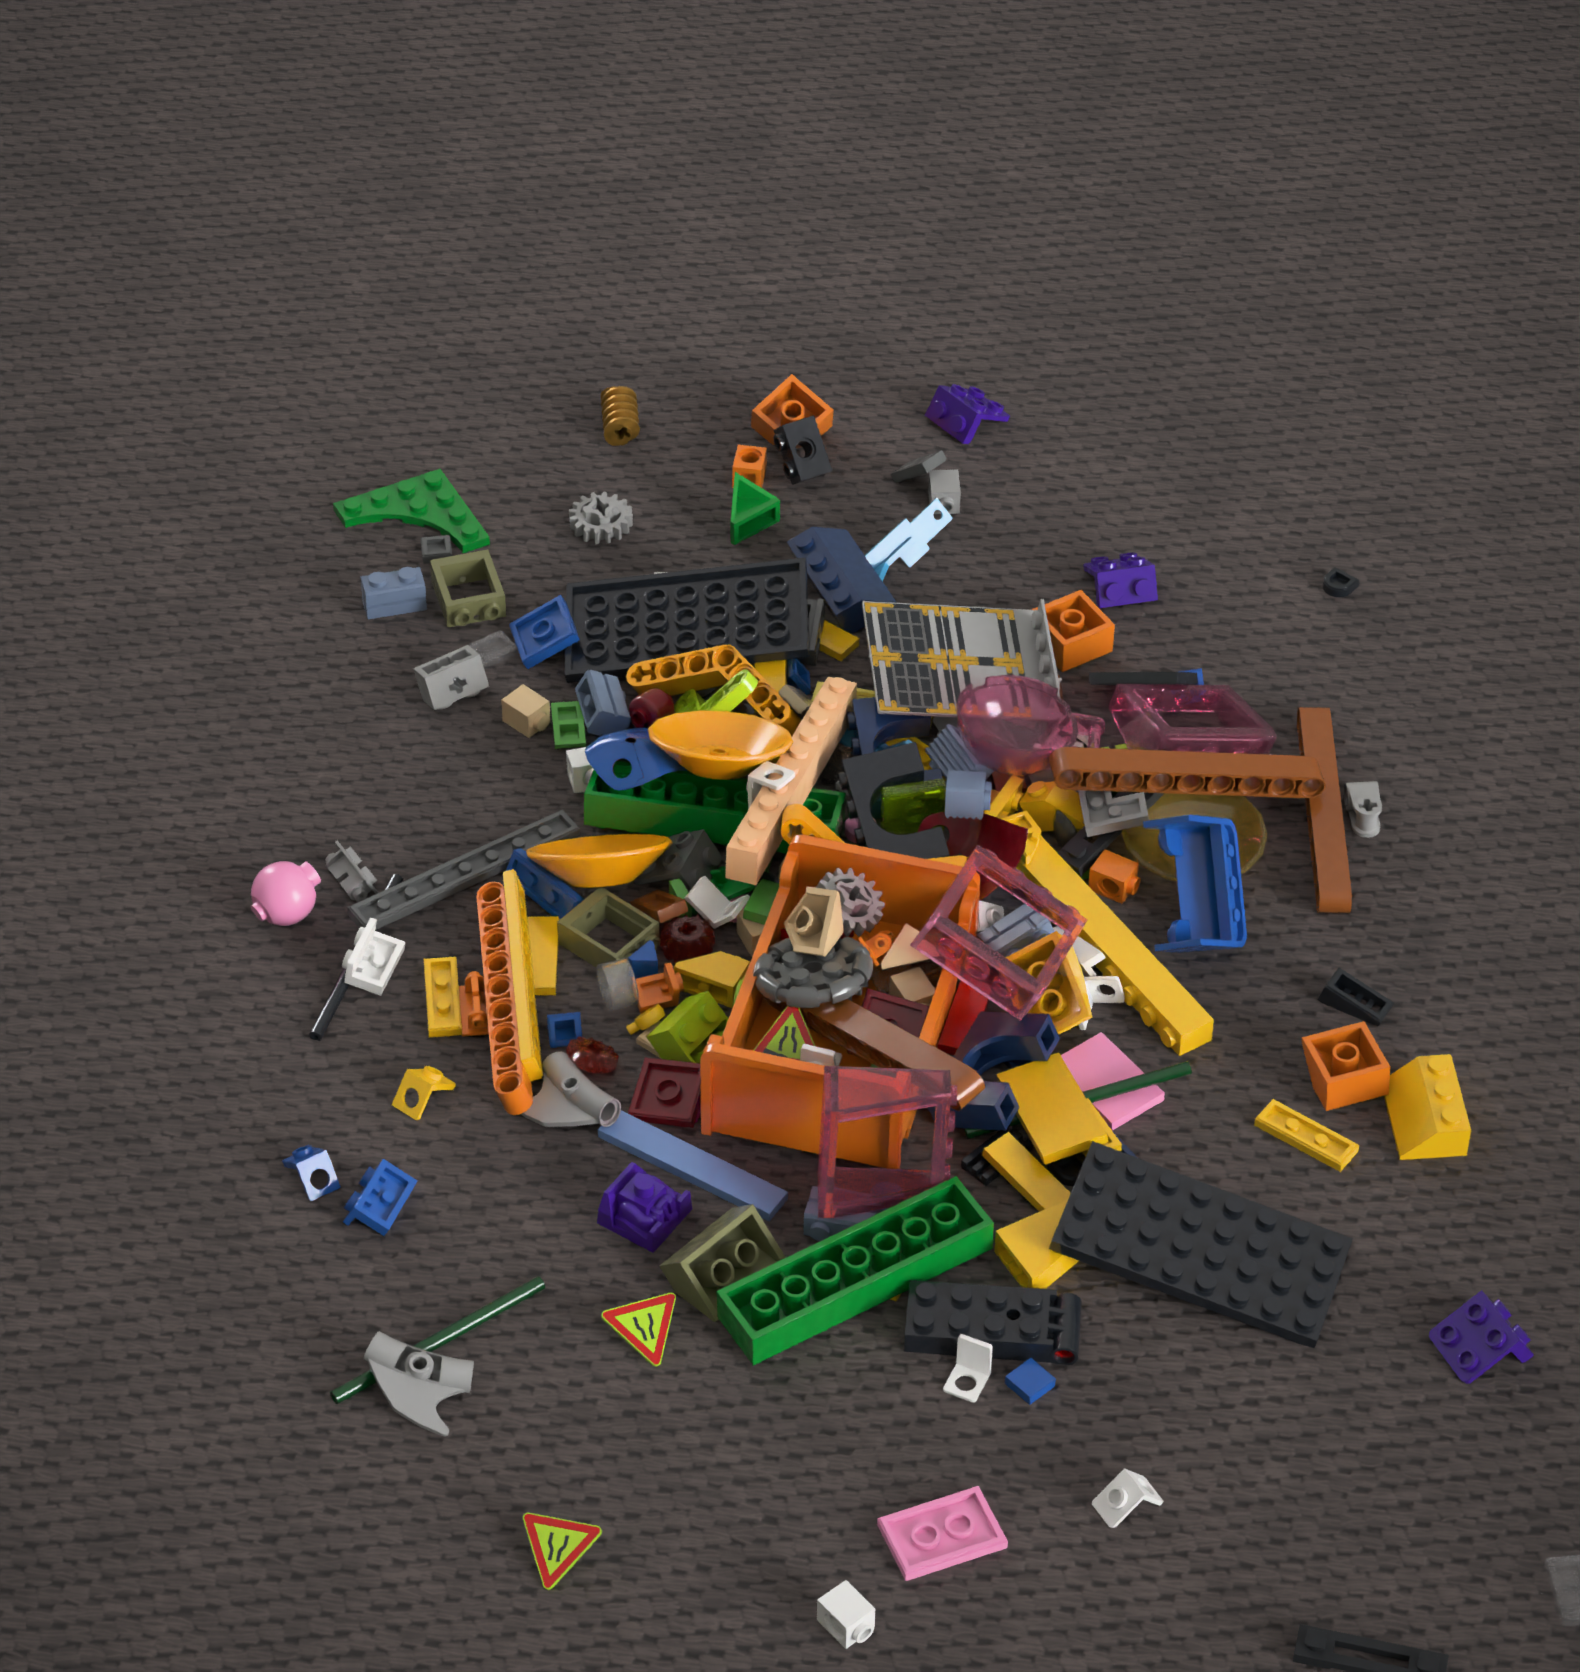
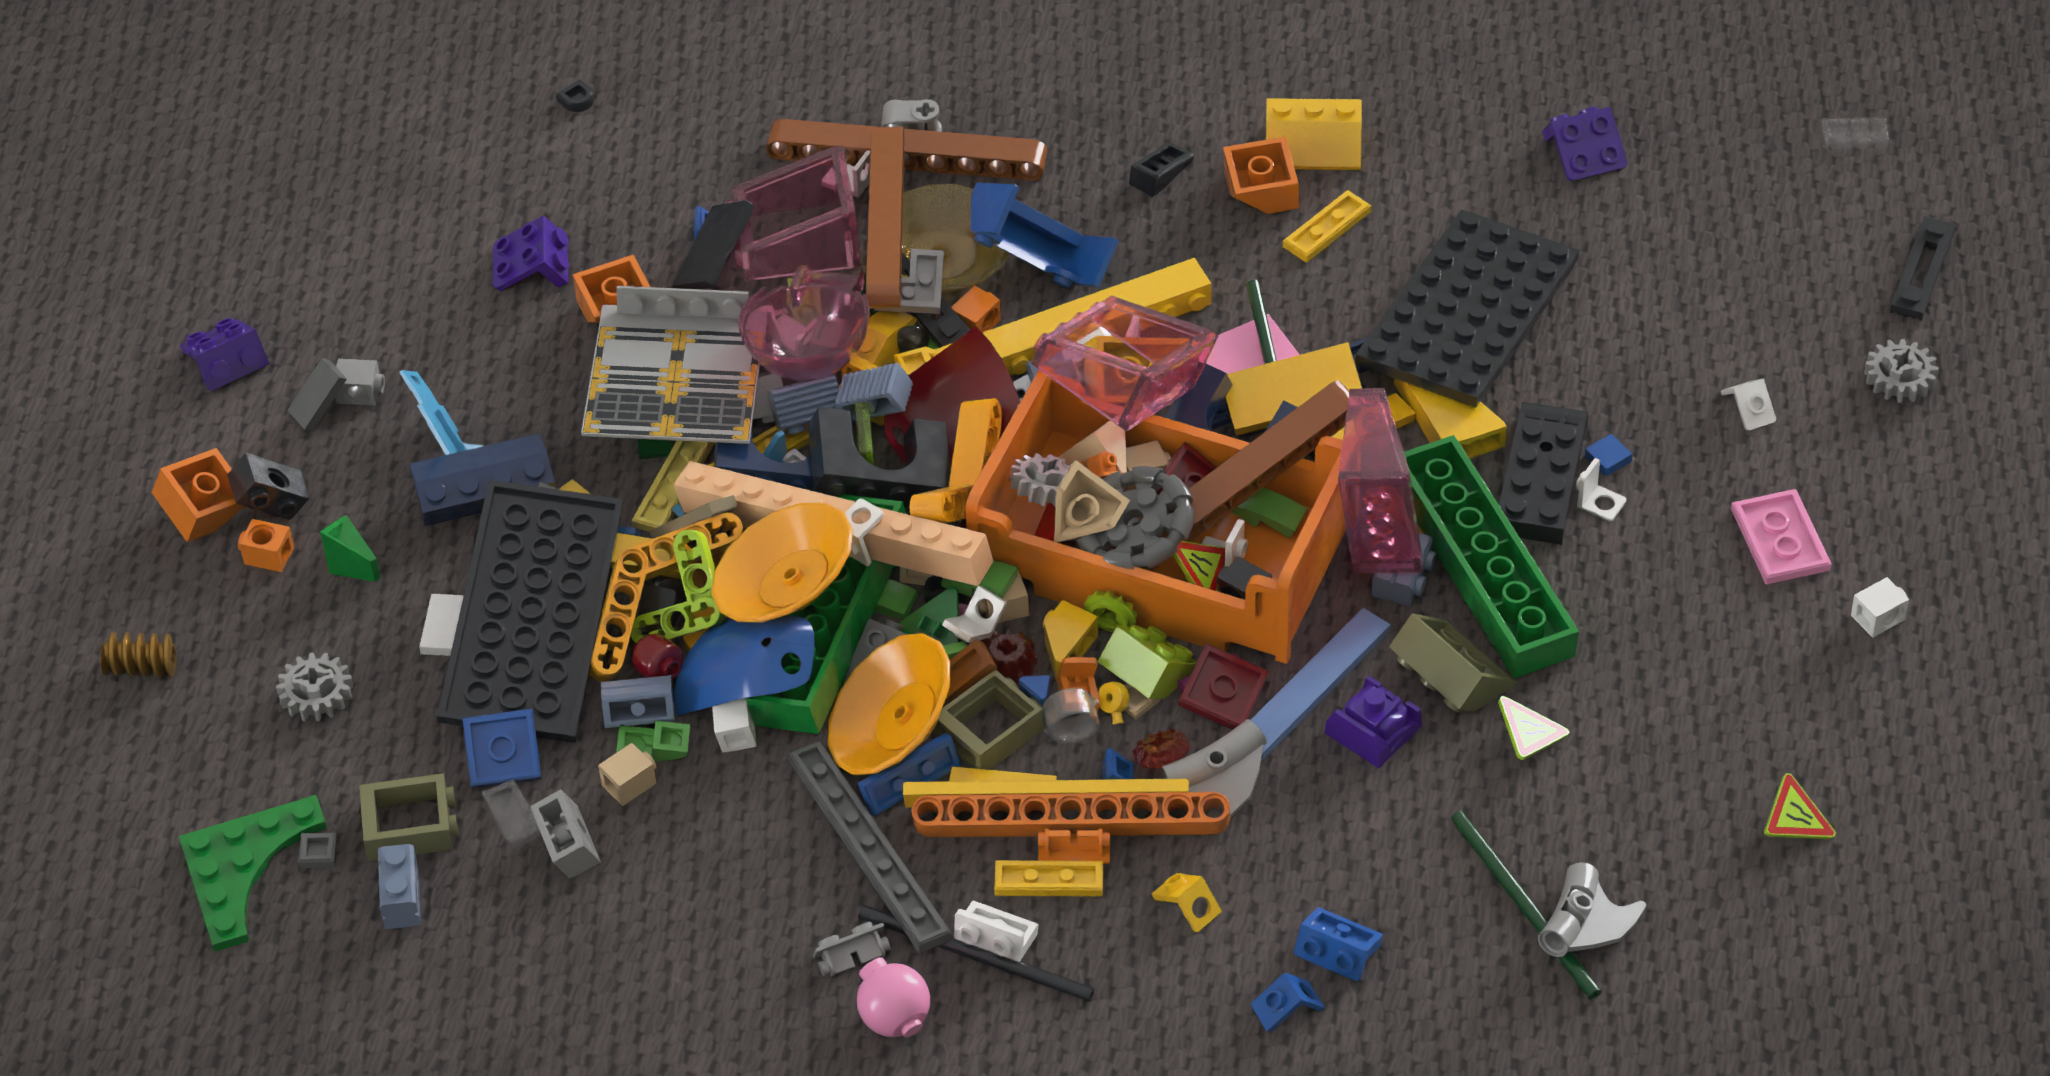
camera: 80 degrees left, 5 degrees up
(1197, 1631) = (1901, 370): none -> light grey gear

